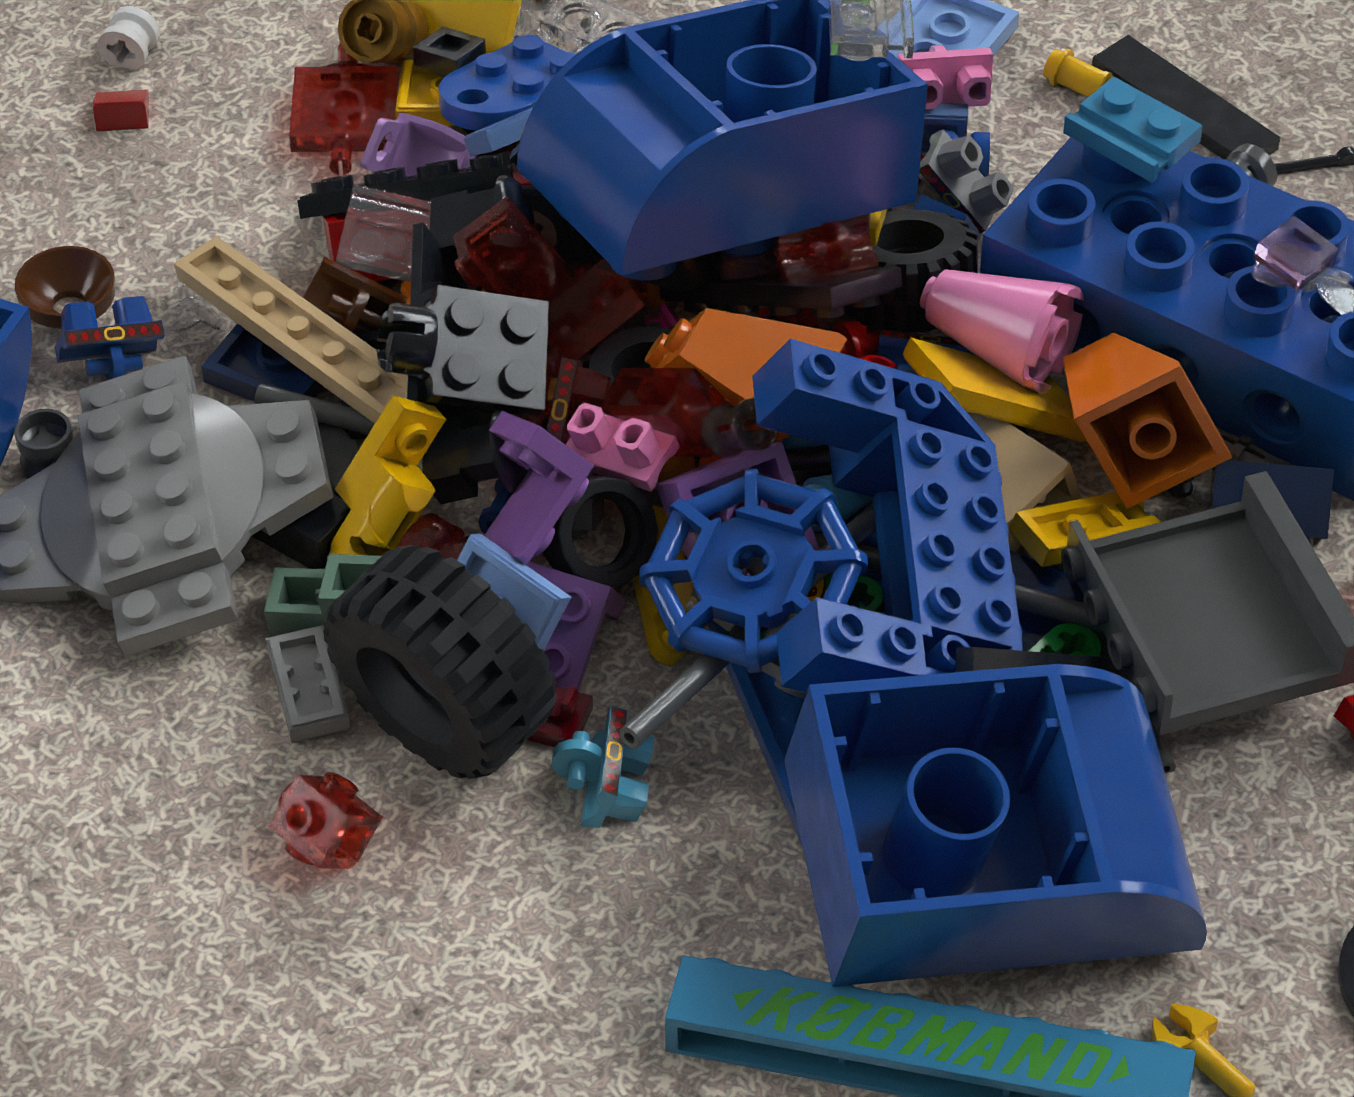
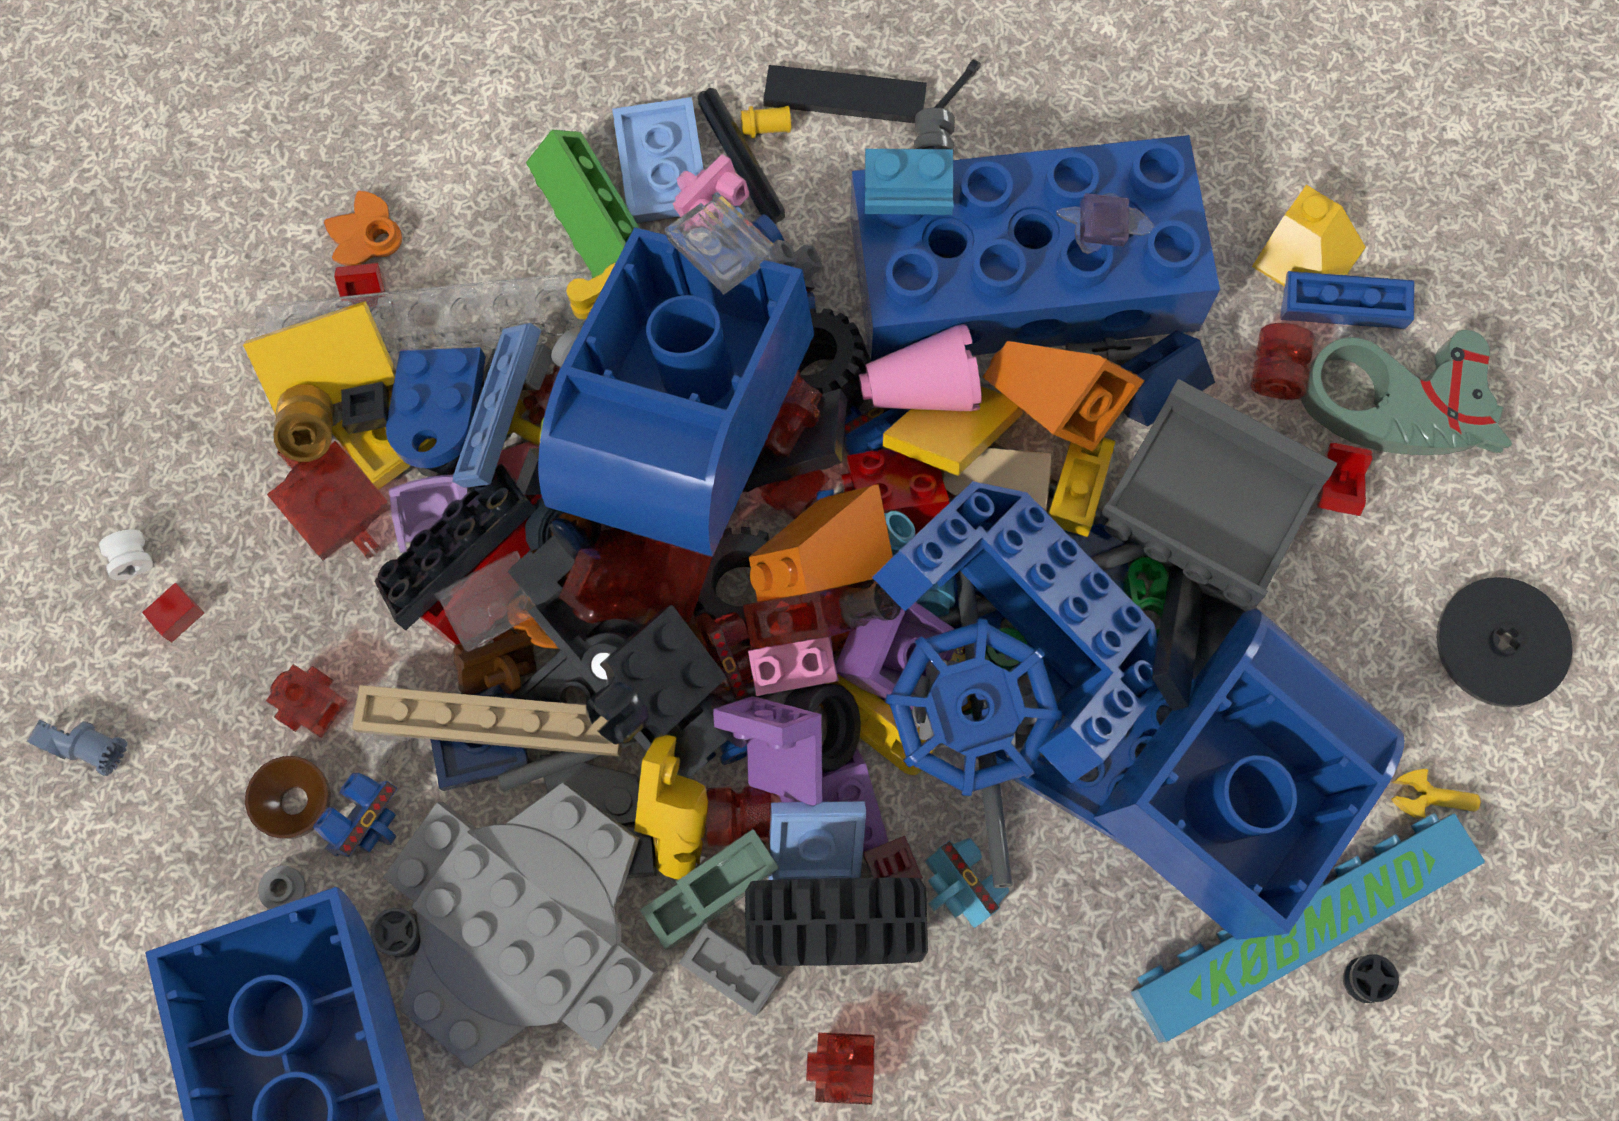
camera: 40 degrees left, 25 degrees up
(157, 217) = (305, 700): none -> clear red brick
(1022, 90) = (740, 155): none -> black axle

